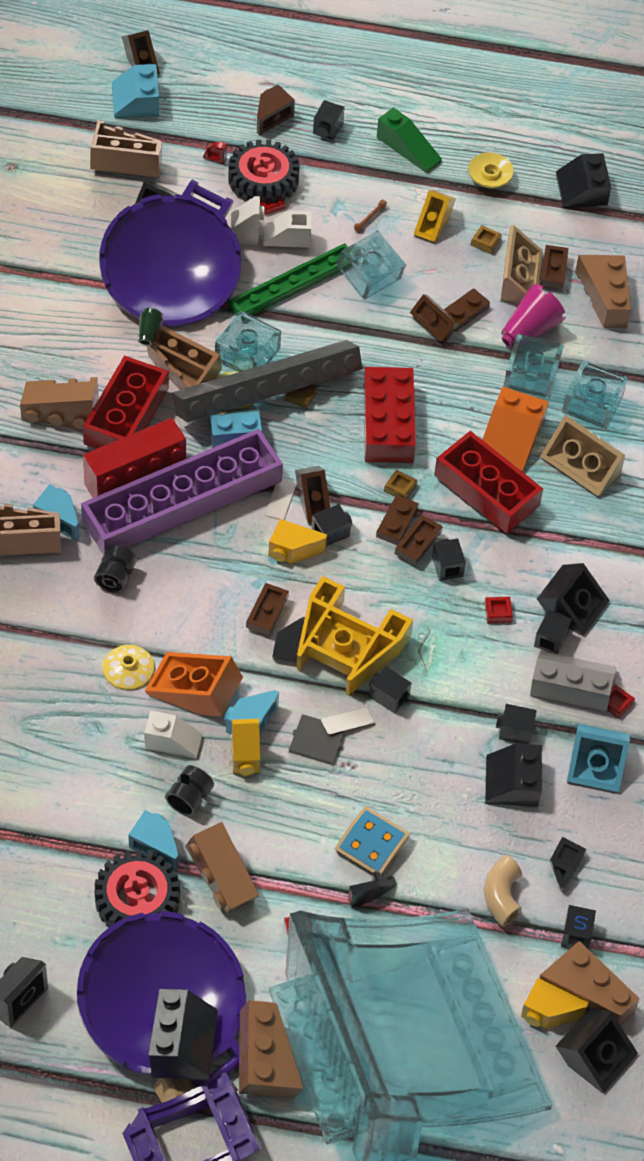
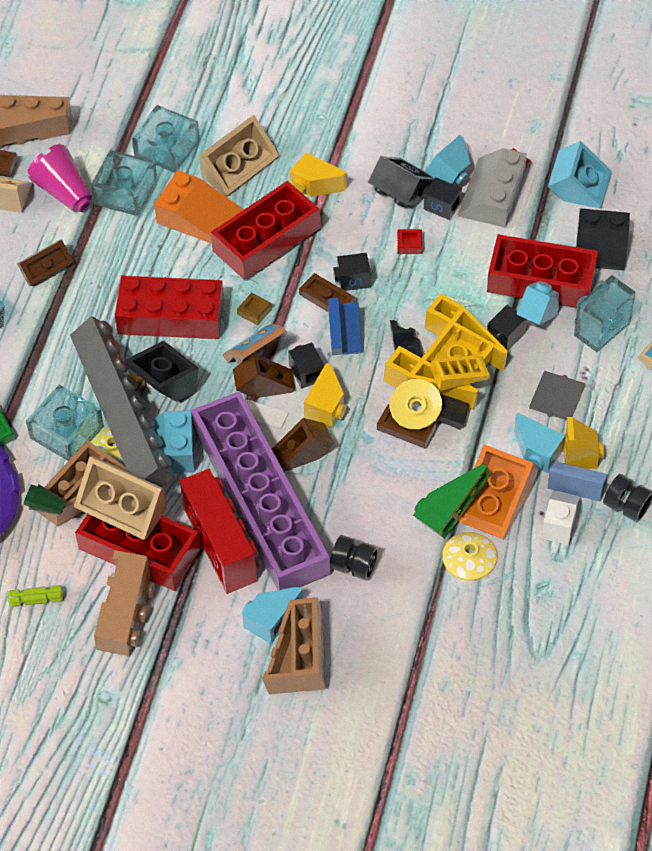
camera: 80 degrees left, 0 degrees up
(76, 347) = (35, 595): none -> lime axle
(152, 379) = (120, 498): none -> tan slope
(169, 636) = (447, 503): none -> green slope
(213, 750) = (576, 481): none -> medium blue panel
(239, 527) = (303, 444): none -> reddish brown slope
(283, 607) = (411, 393): none -> light yellow dish
(304, 408) = (165, 370): none -> black slope
(311, 618) = (445, 382): none -> yellow slope
(347, 478) = (254, 343): none -> nougat slope
(347, 721) = (537, 368): white sticker -> none
(368, 608) = (405, 338): none -> black slope
(376, 550) = (344, 327): none -> blue panel
(397, 520) = (297, 313): reddish brown plate -> none
(407, 767) = (604, 313): none -> clear light blue brick
(411, 708) = (539, 303): none -> medium azure slope
(461, 717) = (524, 261): none -> red brick
(467, 307) = (29, 236): reddish brown plate -> none
(516, 724) = (546, 228): black brick -> none
(567, 521) = (317, 177): none -> yellow slope
(598, 636) = (451, 162): none -> medium azure slope

